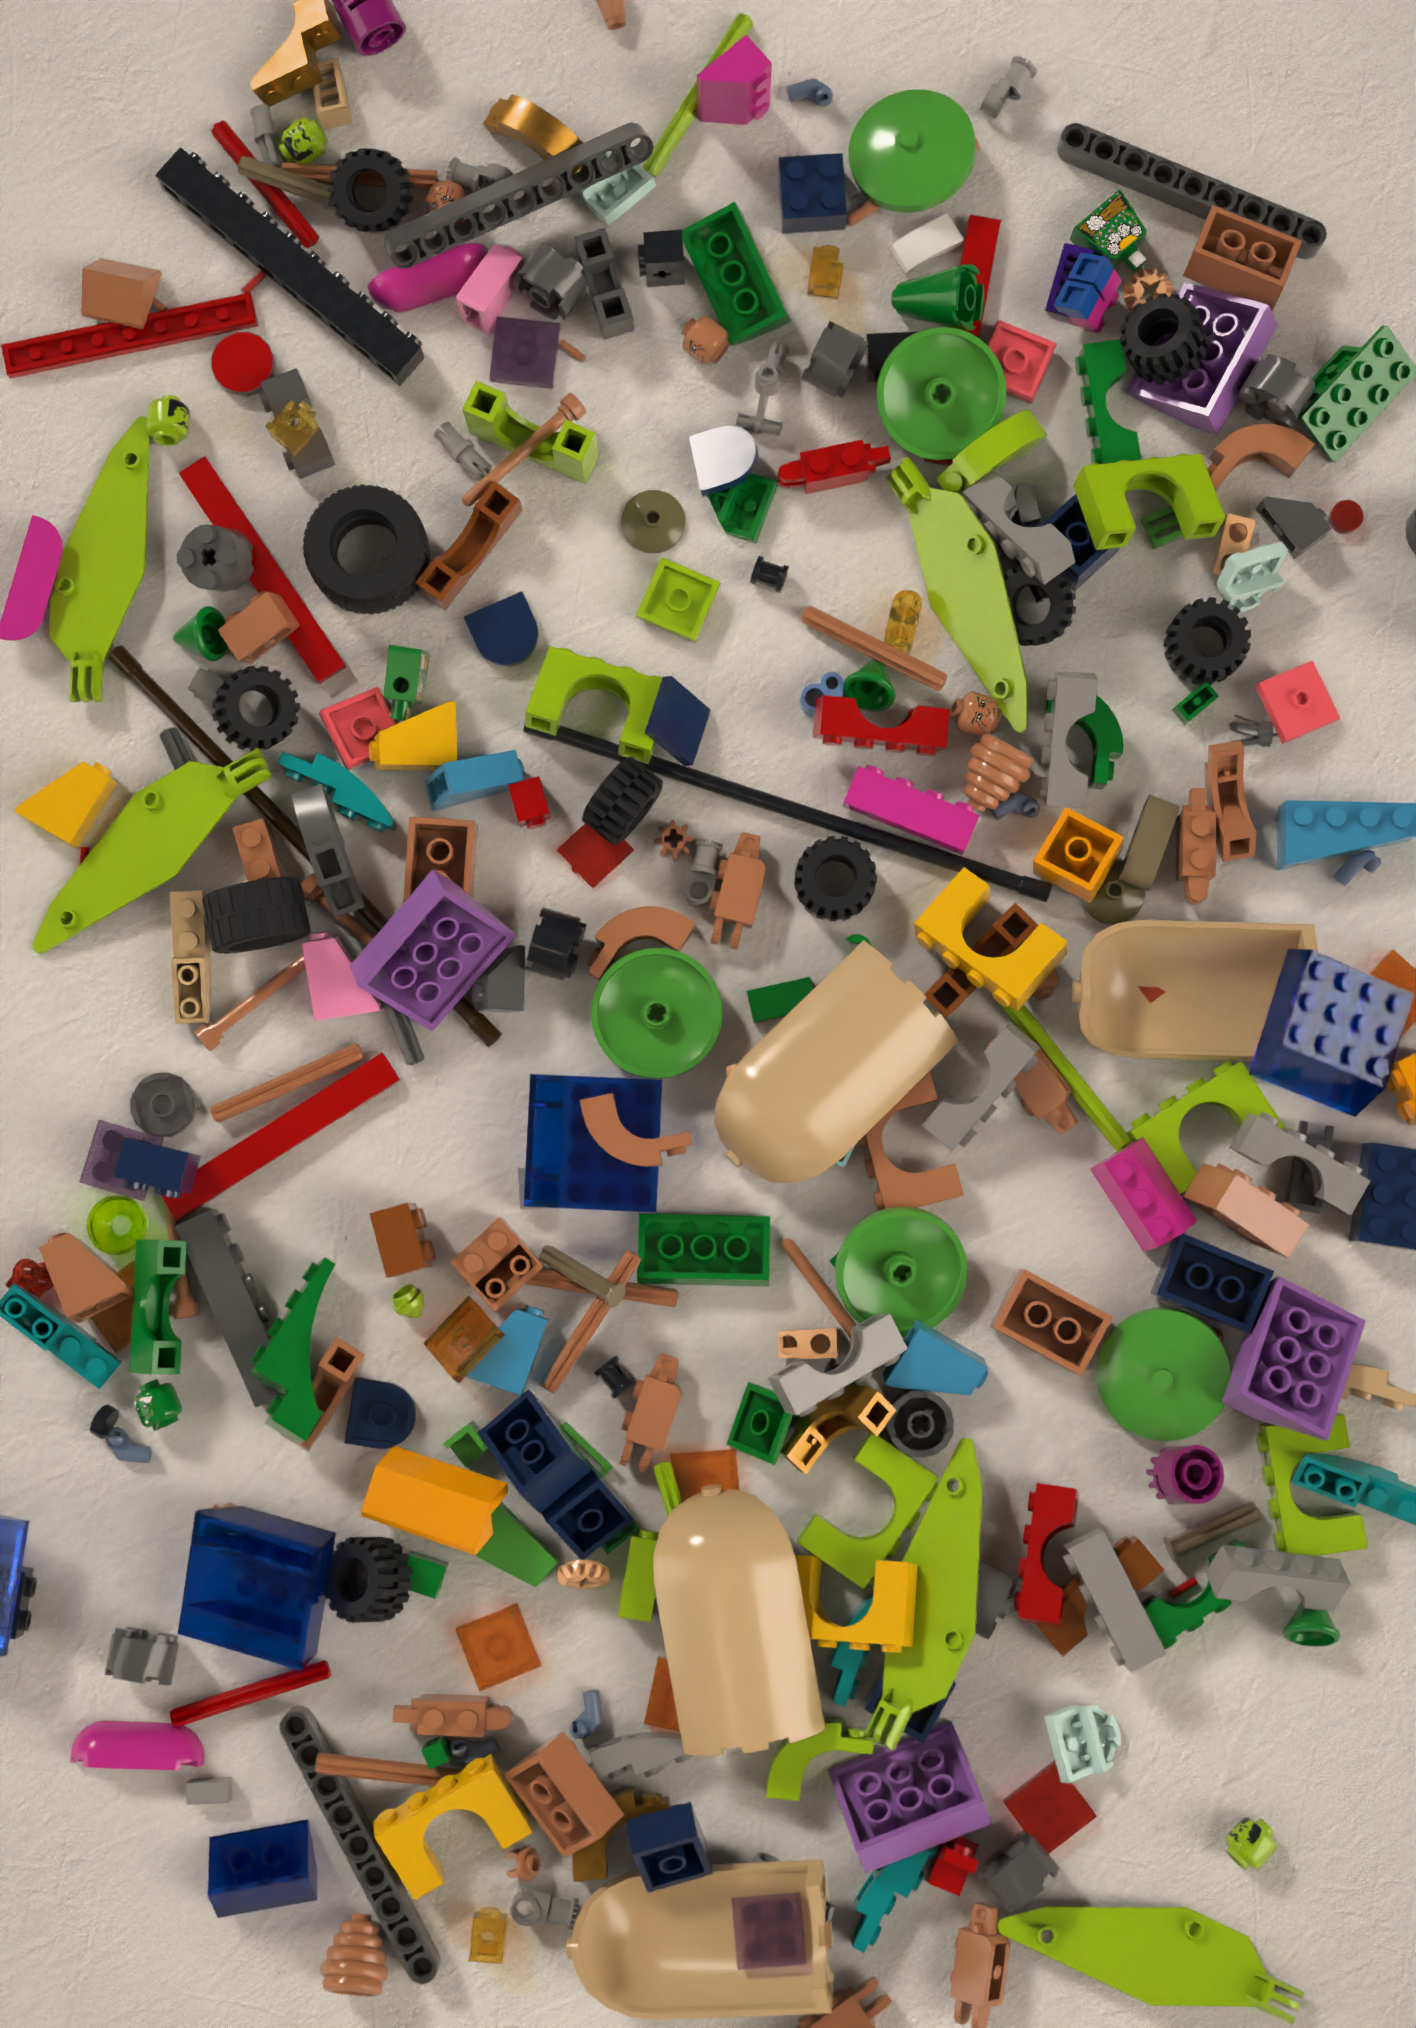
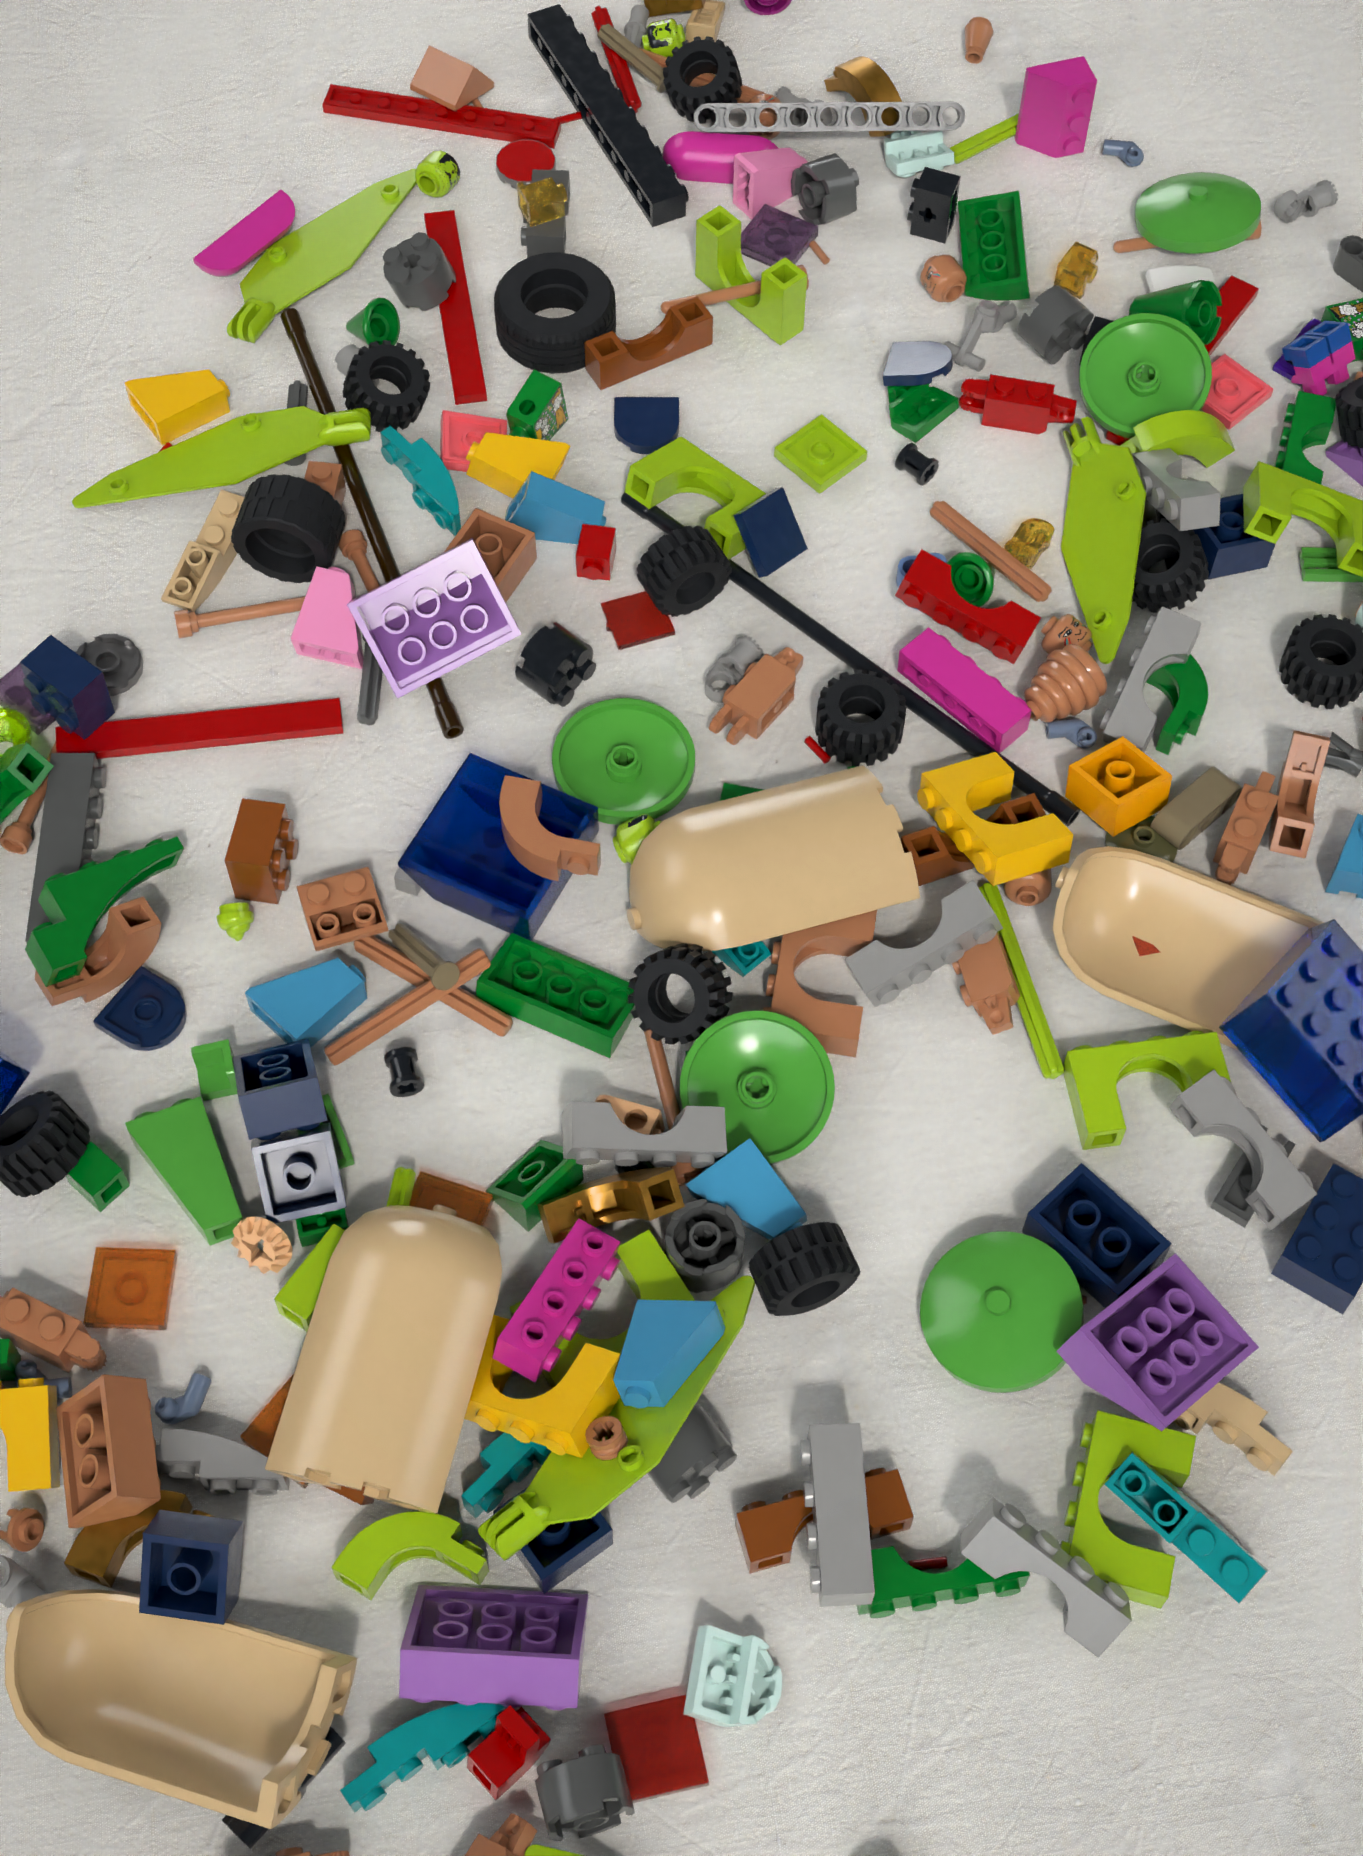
camera: 20 degrees right, 25 degrees down
(258, 626) = (428, 332): nougat brick -> none
(286, 1082) = (233, 690): nougat axle -> none
(327, 850) = (383, 512): dark grey slope -> none
(433, 1499) = (148, 1093): light orange slope -> none
(462, 451) = (681, 281): light grey pin -> none
(463, 1339) = (270, 967): clear orange tile -> none
(502, 983) = (484, 682): dark grey slope -> none
(604, 284) = (872, 208): dark grey arch -> none
(637, 924) = (649, 684): nougat arch -> none
(653, 536) = (828, 394): olive dish -> none
(654, 1410) = (423, 1121): nougat hinge -> none
(680, 835) = (717, 632): nougat gear -> none
(704, 1083) = (631, 834): none -> lime head
(769, 1931) = (252, 1715): plate -> none
(808, 918) = (812, 744): none -> red piece
(809, 1240) = (654, 1005): none -> black tyre
(812, 193) = (1091, 211): dark blue brick -> none
(835, 1528) = (556, 1301): none -> dark pink brick
(918, 1634) = (604, 1427): none -> nougat bush
(935, 1539) = (664, 1348): none -> dark azure slope
(1006, 1415) = (804, 1269): none -> black tyre
(1051, 1321) = (897, 1203): nougat brick -> none
(1053, 1512) = (753, 1478): red arch -> none
(1144, 1195) = (1053, 1116): dark pink slope -> none
(1186, 1474) = (983, 1419): magenta gear -> none
(1195, 703) = (1295, 713): green piece -> none
(1212, 1530) = (968, 1507): dark tan axle -> none
(1247, 1209) = (1165, 1168): brick -> none
(1311, 1628) = (1062, 1670): green hat -> none

